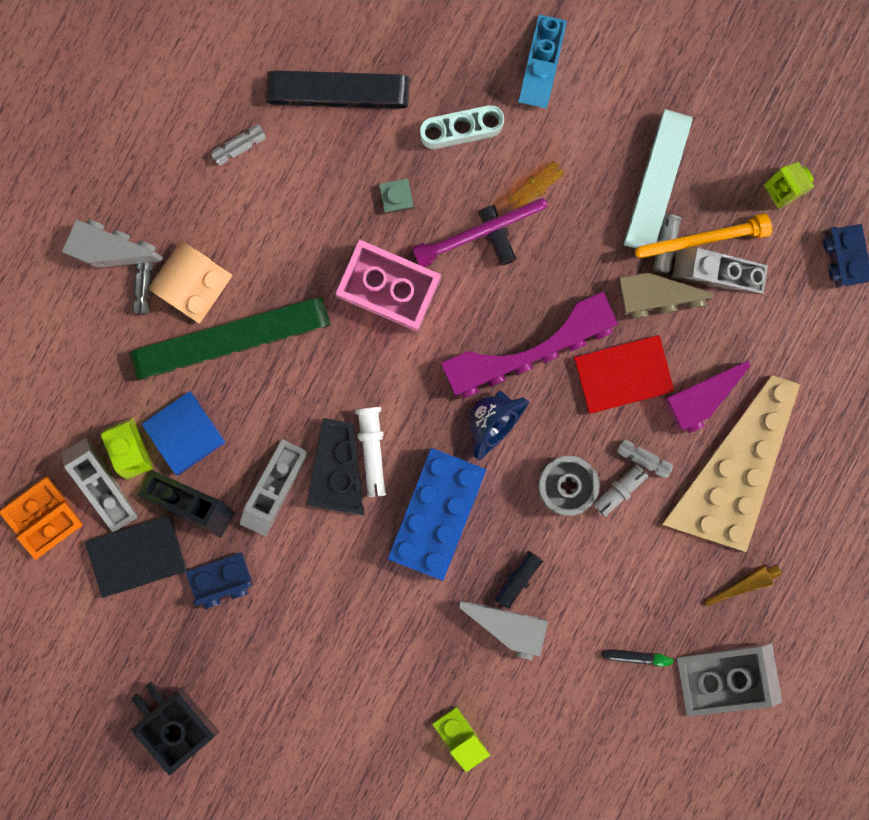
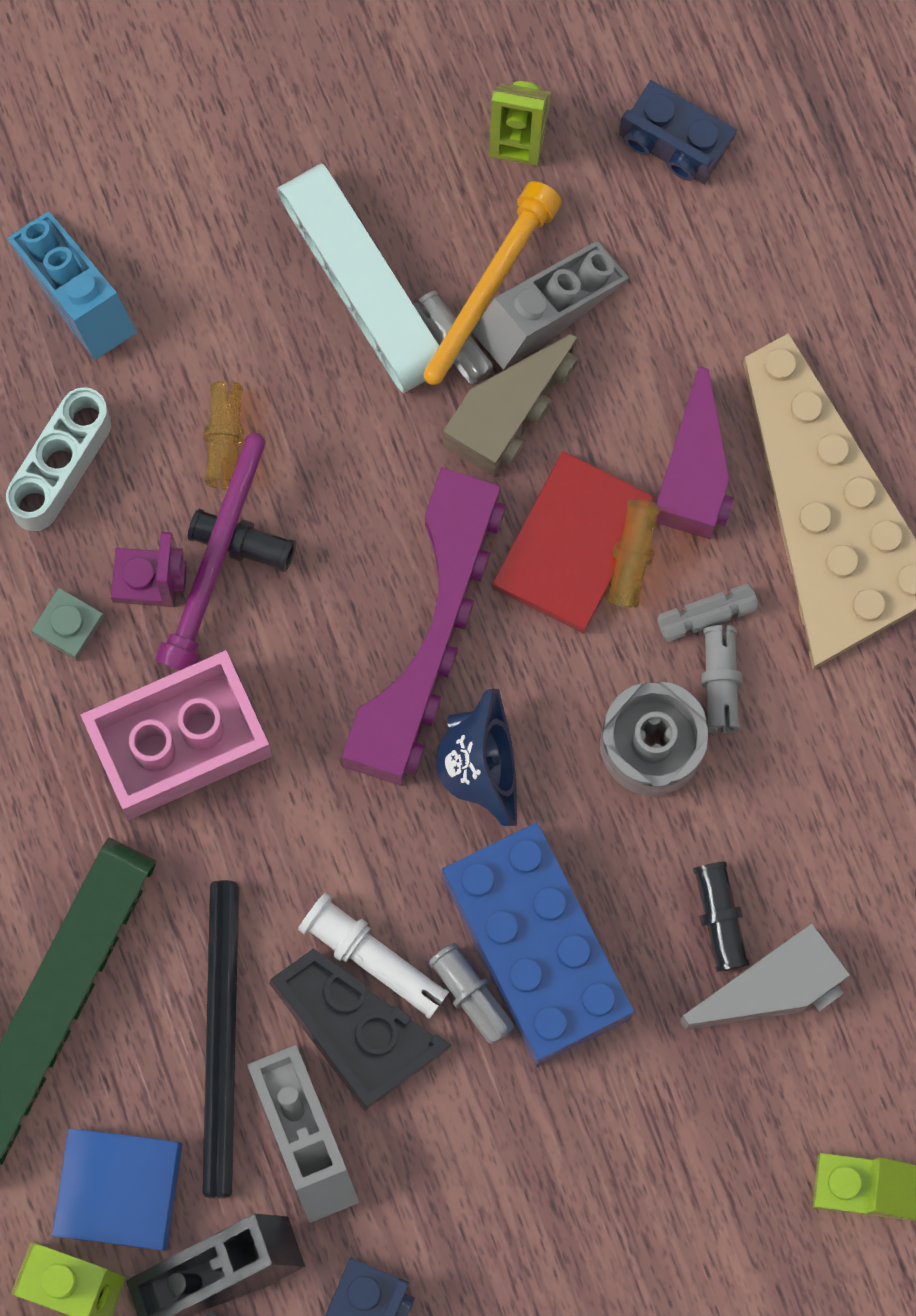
camera: 50 degrees left, 10 degrees down
(282, 418) = (220, 1040): none -> black axle
(393, 505) = (471, 994): none -> light grey axle
(447, 210) = (149, 575): none -> magenta bracket
(640, 405) = (633, 553): none -> clear yellow pin

